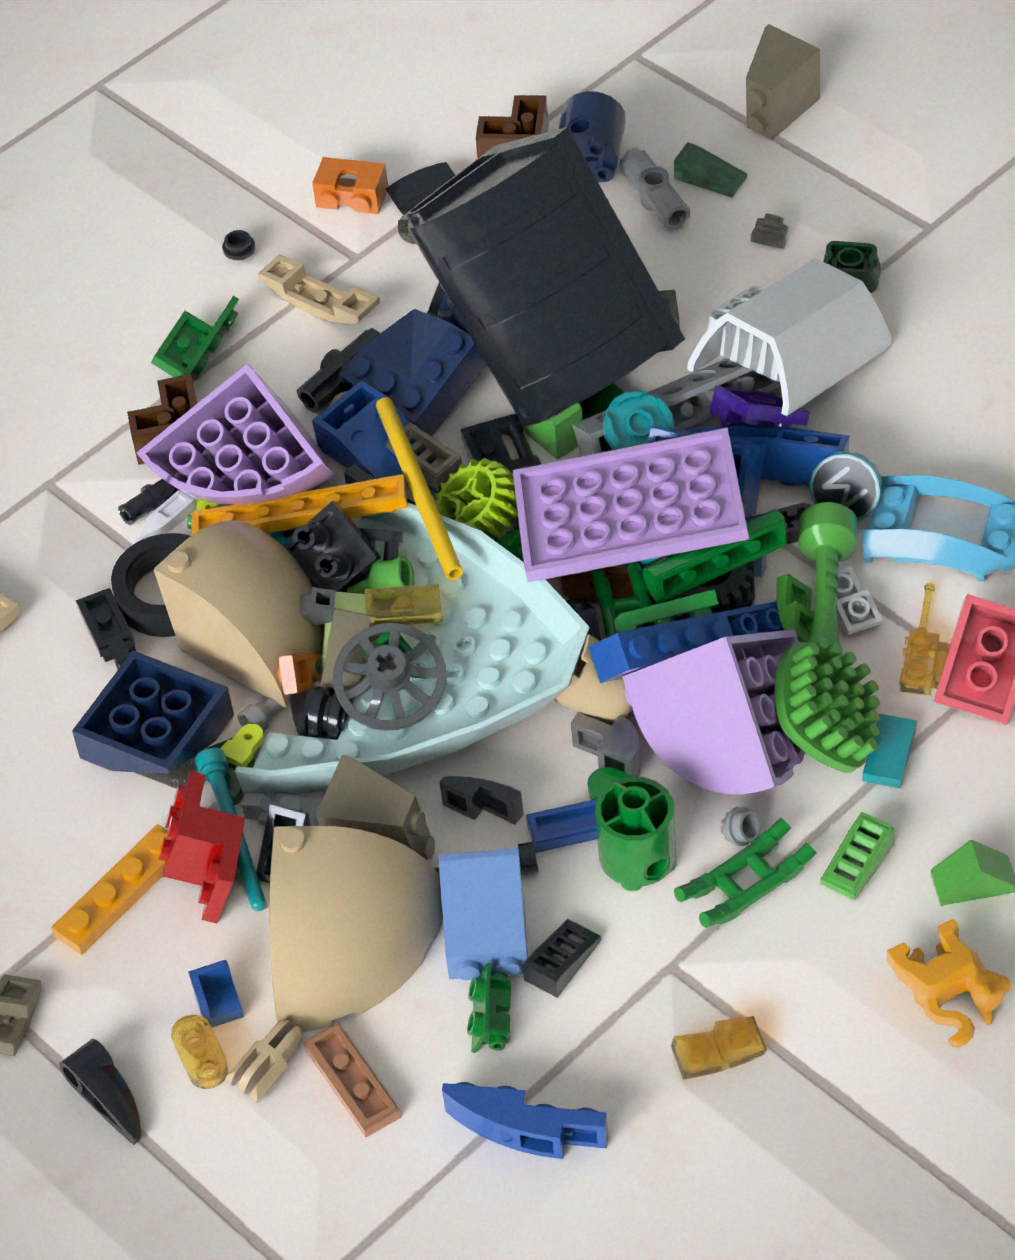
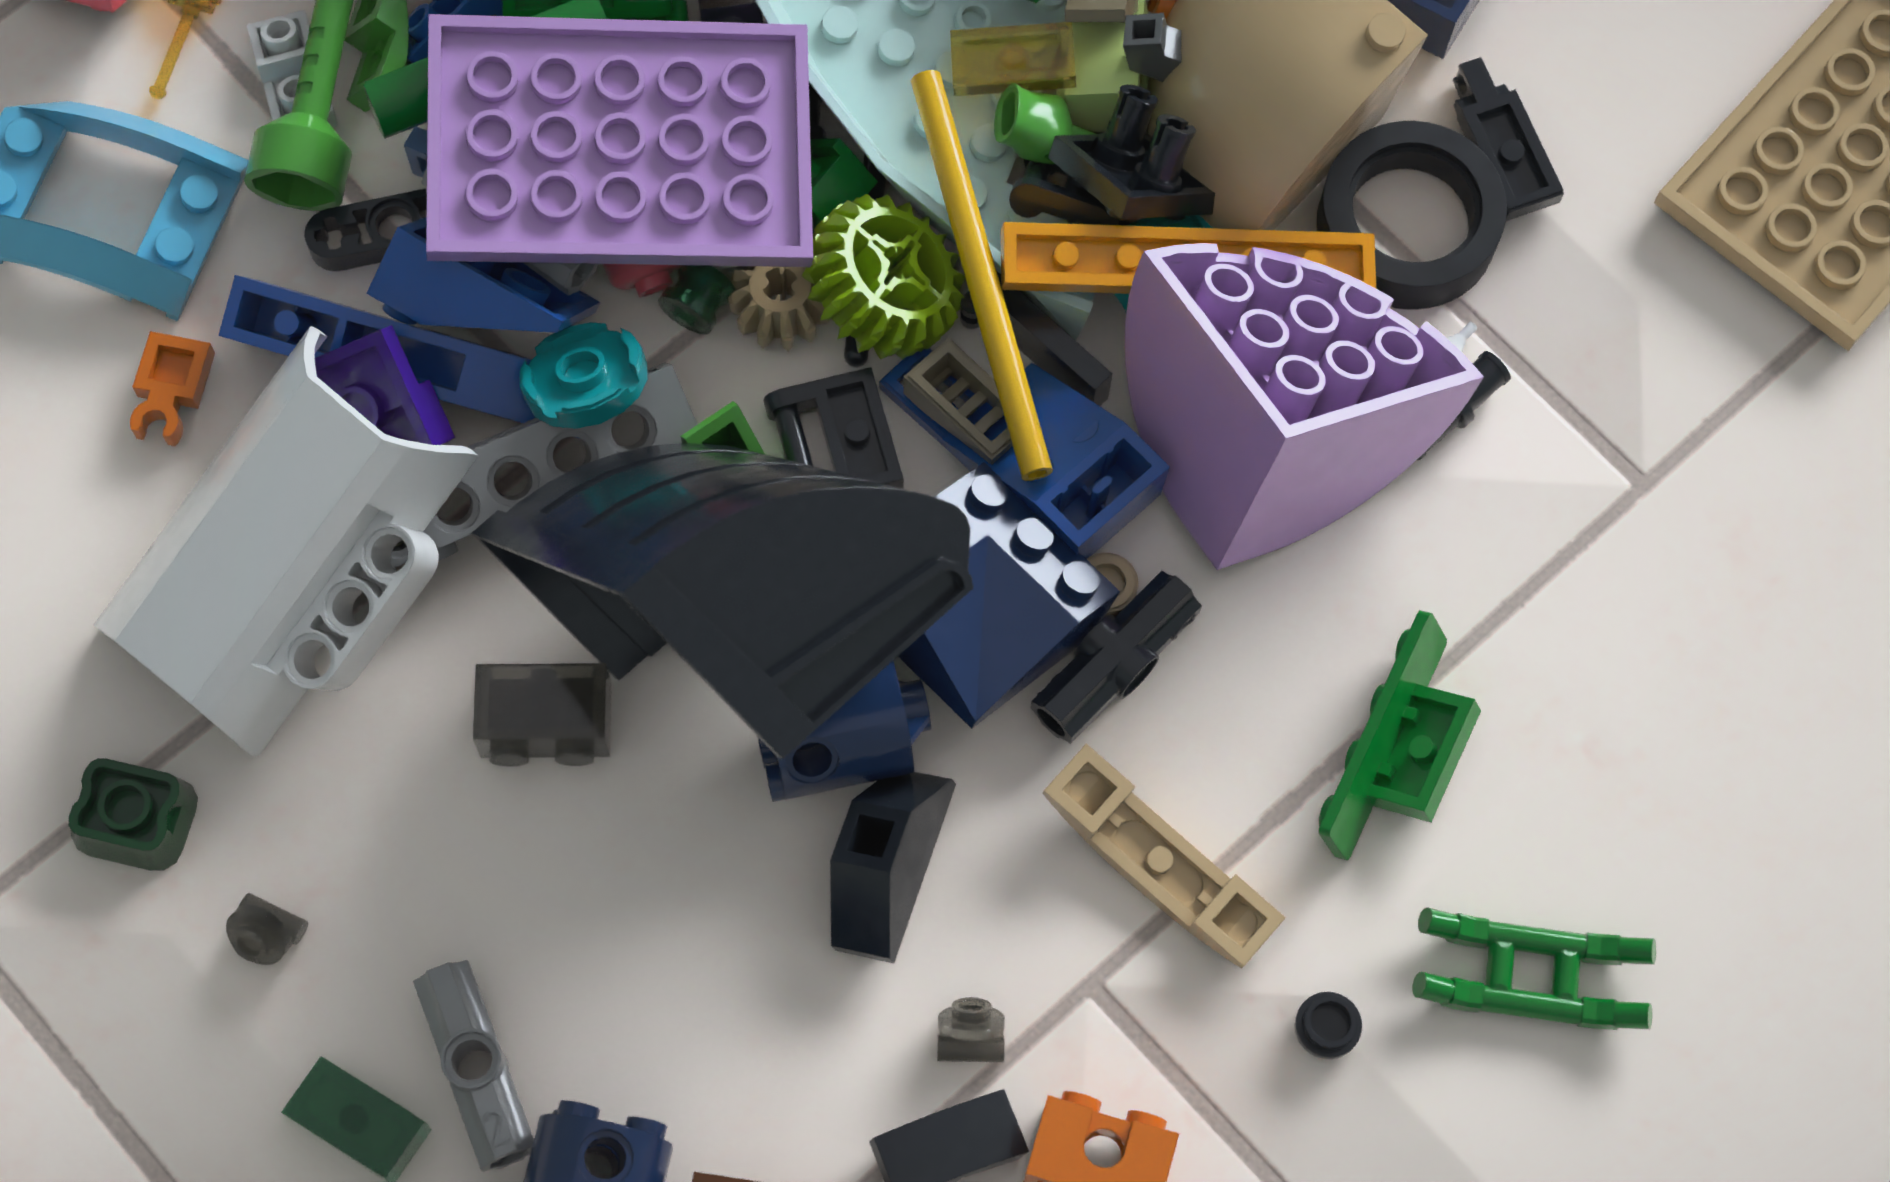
camera: 175 degrees right, 20 degrees up
(121, 265) = (1567, 950): none -> green piece
(176, 399) = (1419, 531): reddish brown brick -> none
(847, 481) = (249, 251): black tile -> none
(880, 440) = (169, 376): none -> orange plate

